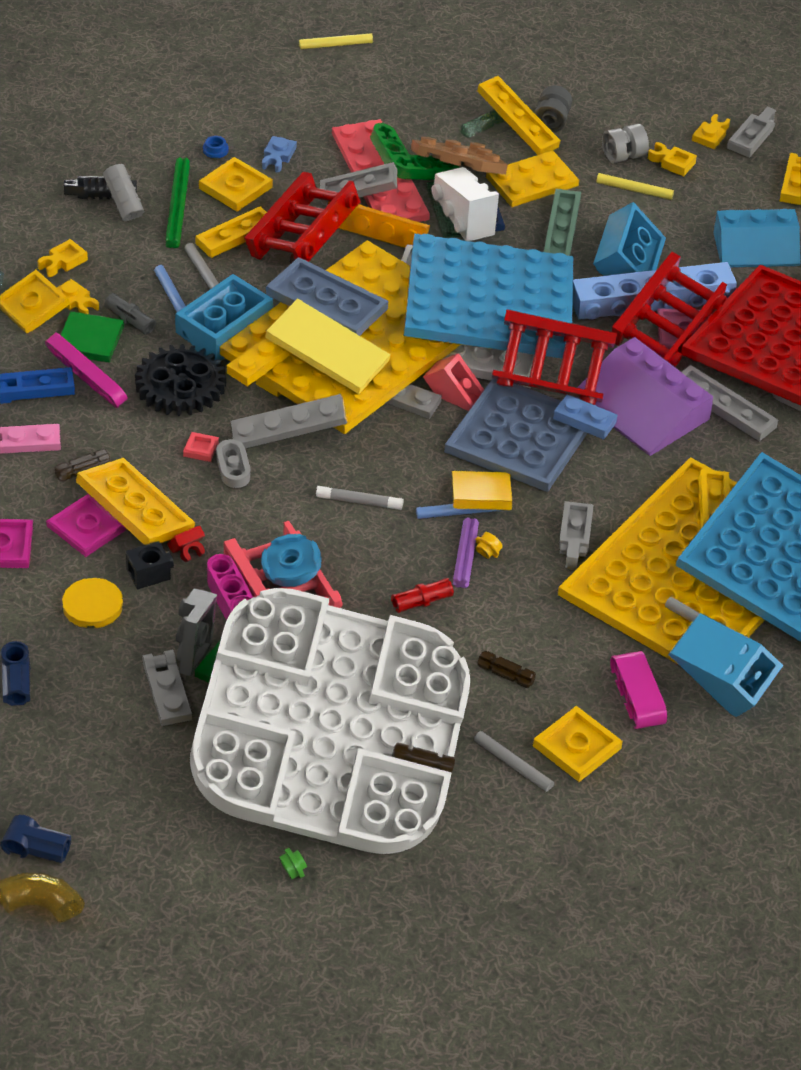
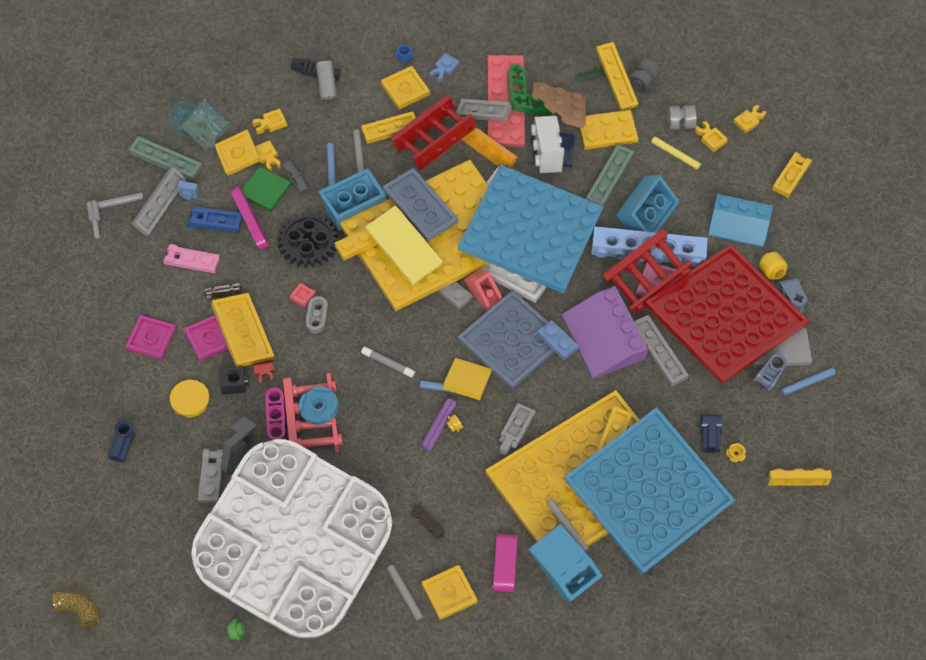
camera: 20 degrees right, 15 degrees up
(27, 837) = (87, 565): dark blue piece -> none
(177, 203) = (362, 93): green axle -> none
(289, 421) = (362, 294): light grey plate -> none
(422, 595) = (397, 450): red pin -> none
(423, 757) = (340, 582): dark brown axle -> none
(573, 335) = (566, 281): red fence -> none
(752, 133) = (777, 127): light grey hinge -> none

